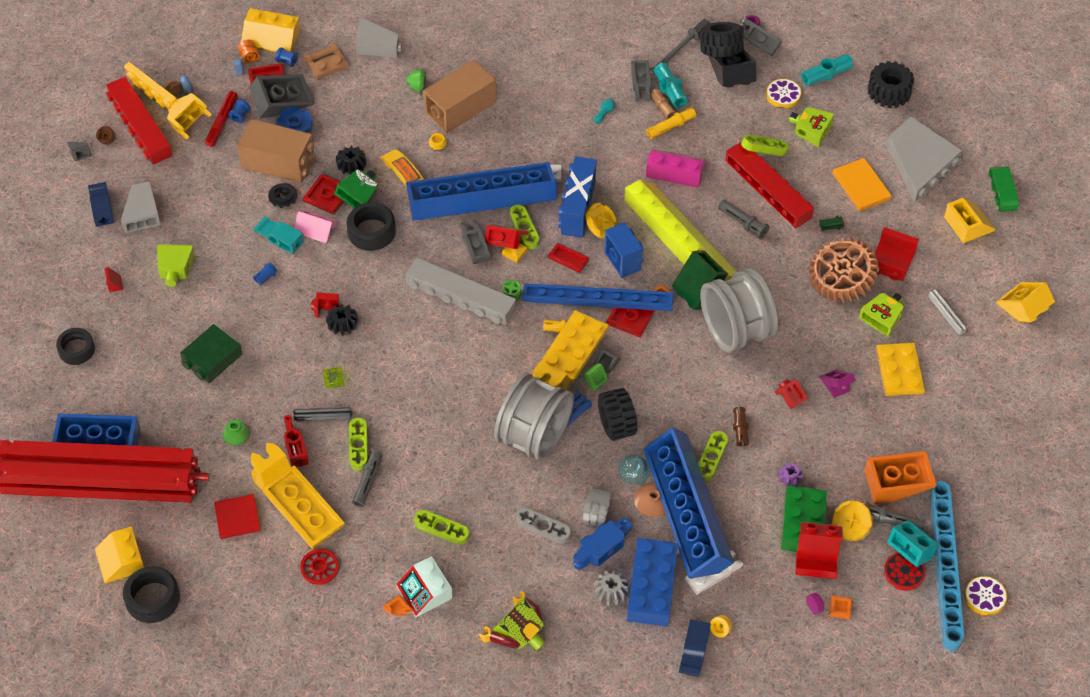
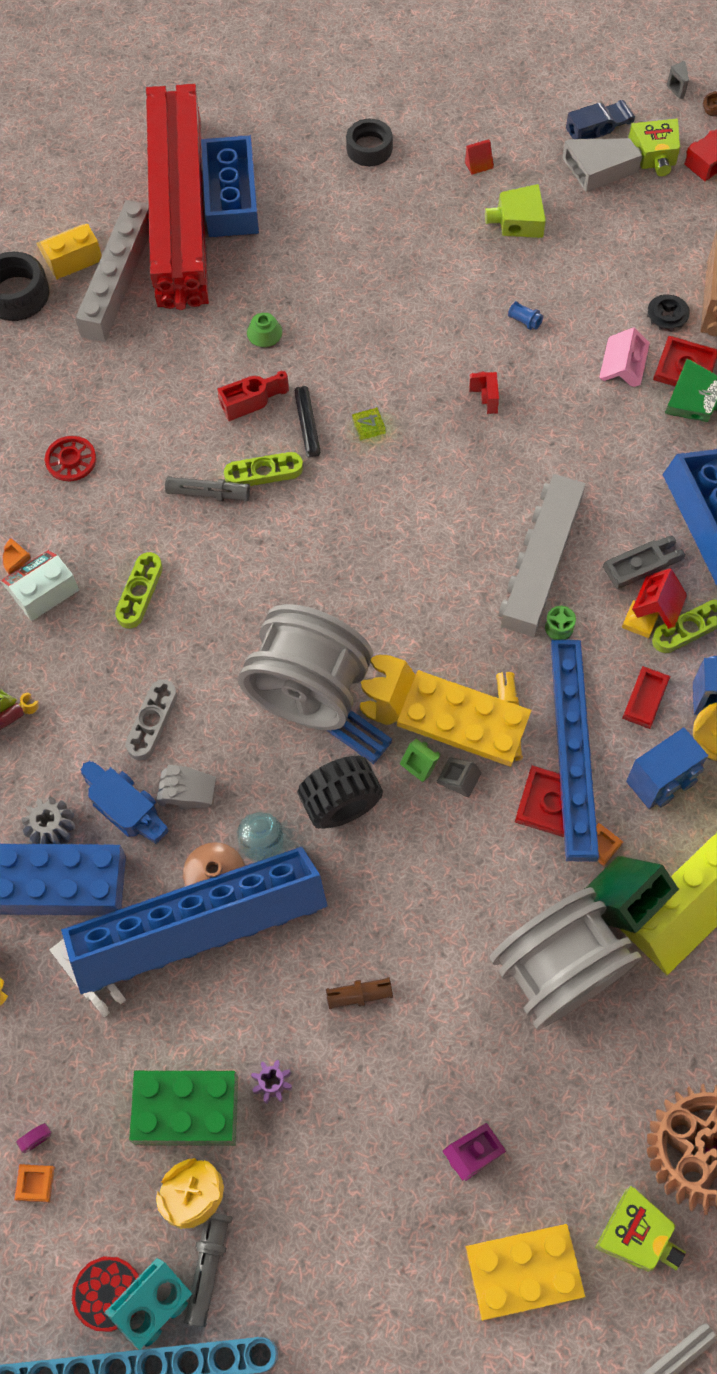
camera: 85 degrees right, 10 degrees up
(136, 171) = (657, 143): none -> lime torso
(155, 522) = (114, 272): none -> light grey brick
(210, 353) = (380, 279): dark green brick -> none
(237, 516) = (138, 356): red tile -> none
(280, 234) = (595, 319): teal piece -> none
(294, 497) = (163, 405): yellow hinge -> none
(342, 319) = (463, 415): black gear -> none
(373, 240) = (629, 443): black tyre -> none
(710, 448) = (324, 950): lime beam -> none
(791, 392) = (437, 1072): red bracket -> none
(818, 550) = (112, 1132): red panel -> none
(898, 476) = (280, 1276): orange slope -> none

